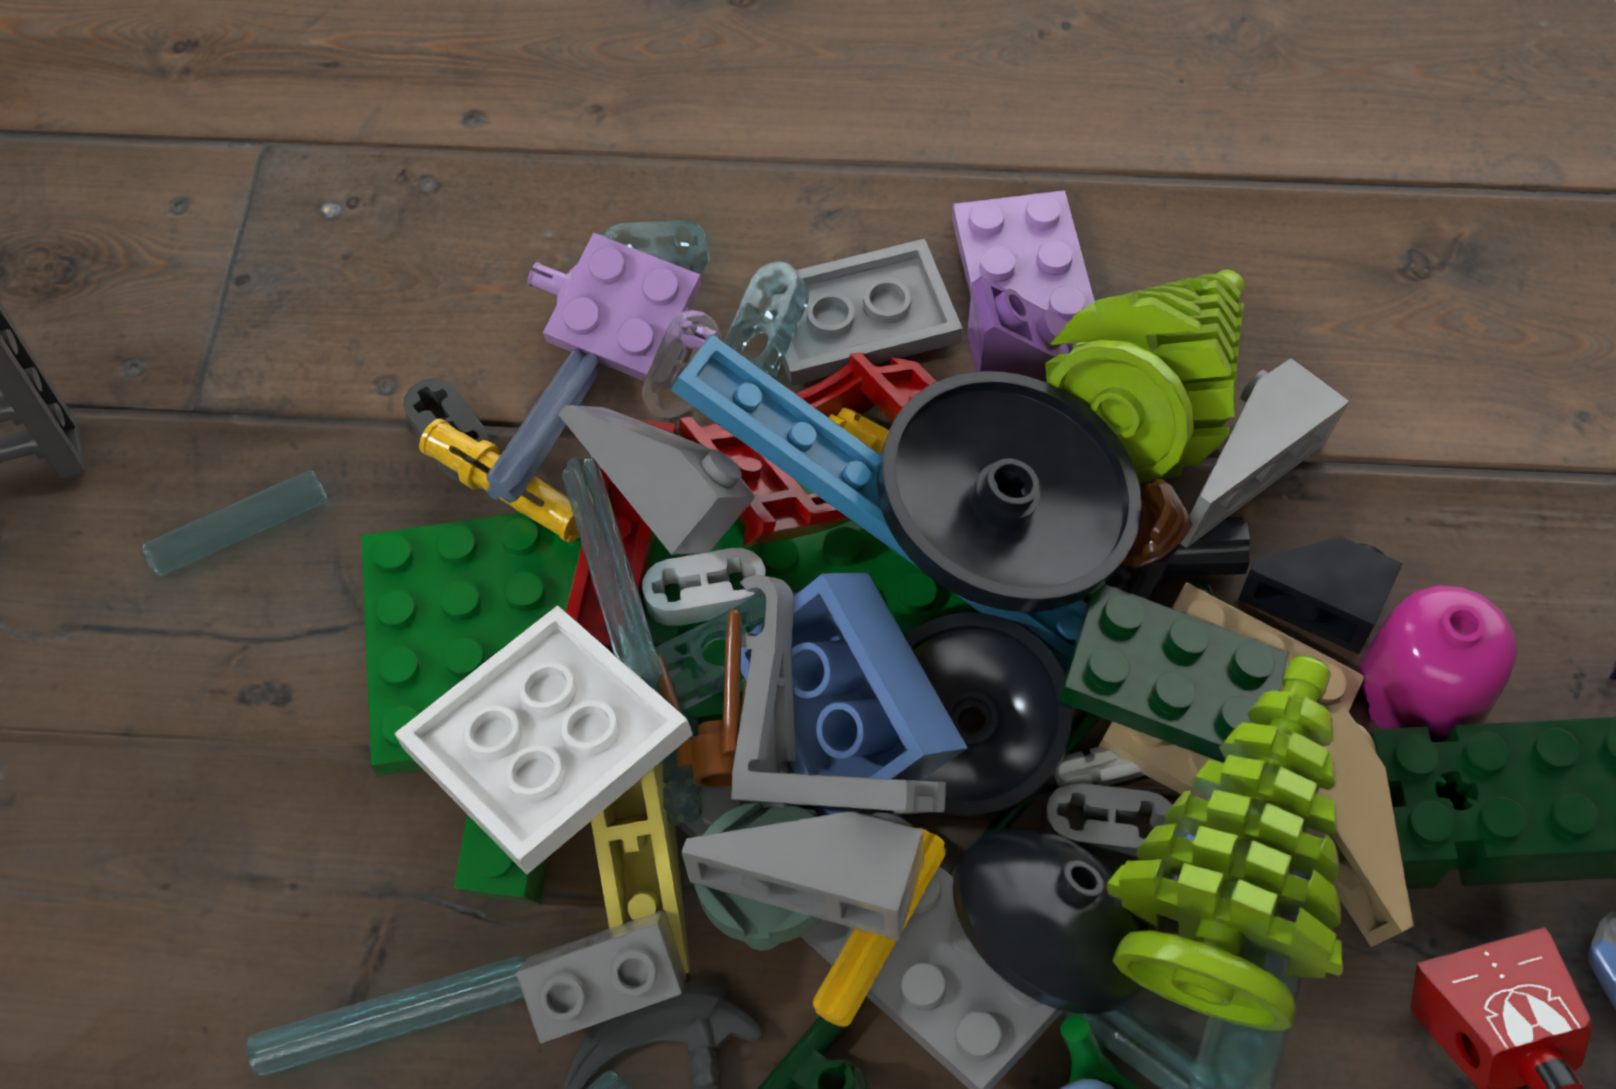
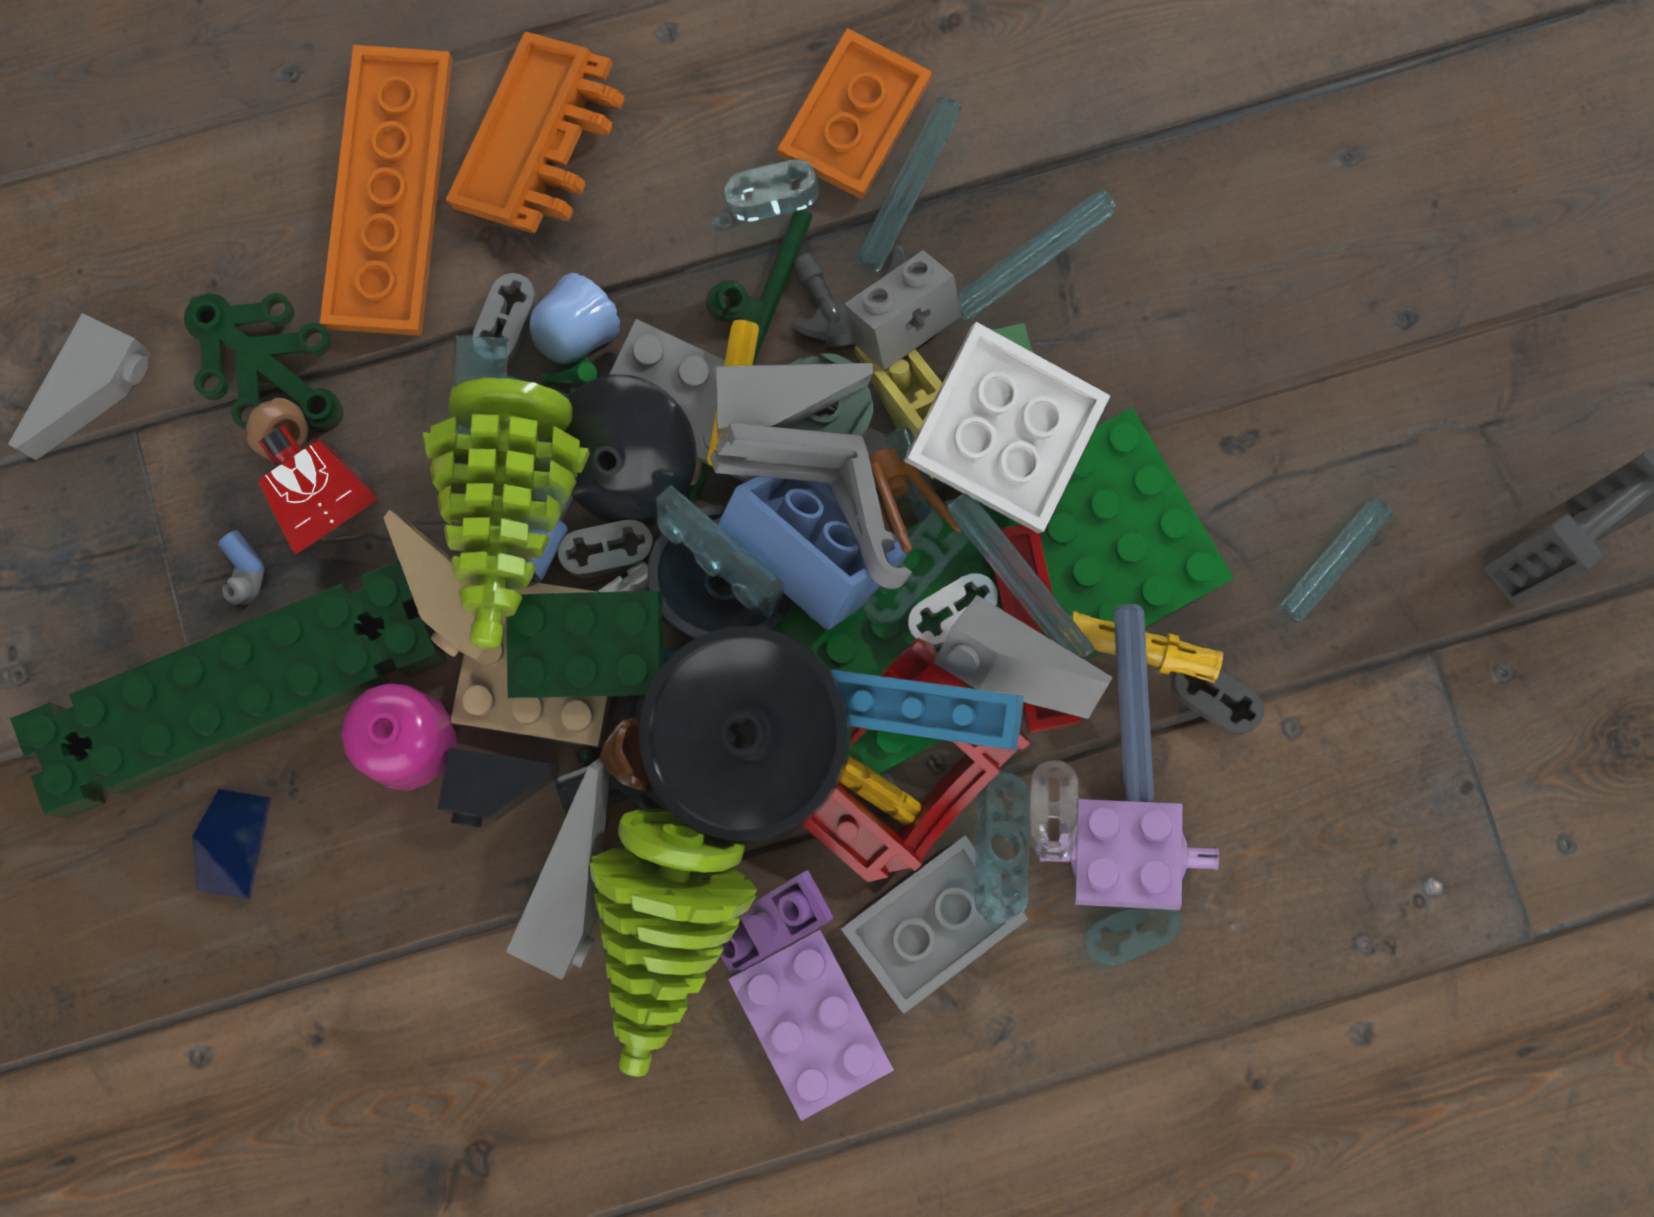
camera: 160 degrees right, 20 degrees up
(974, 719) = (718, 552): none -> clear light blue plate

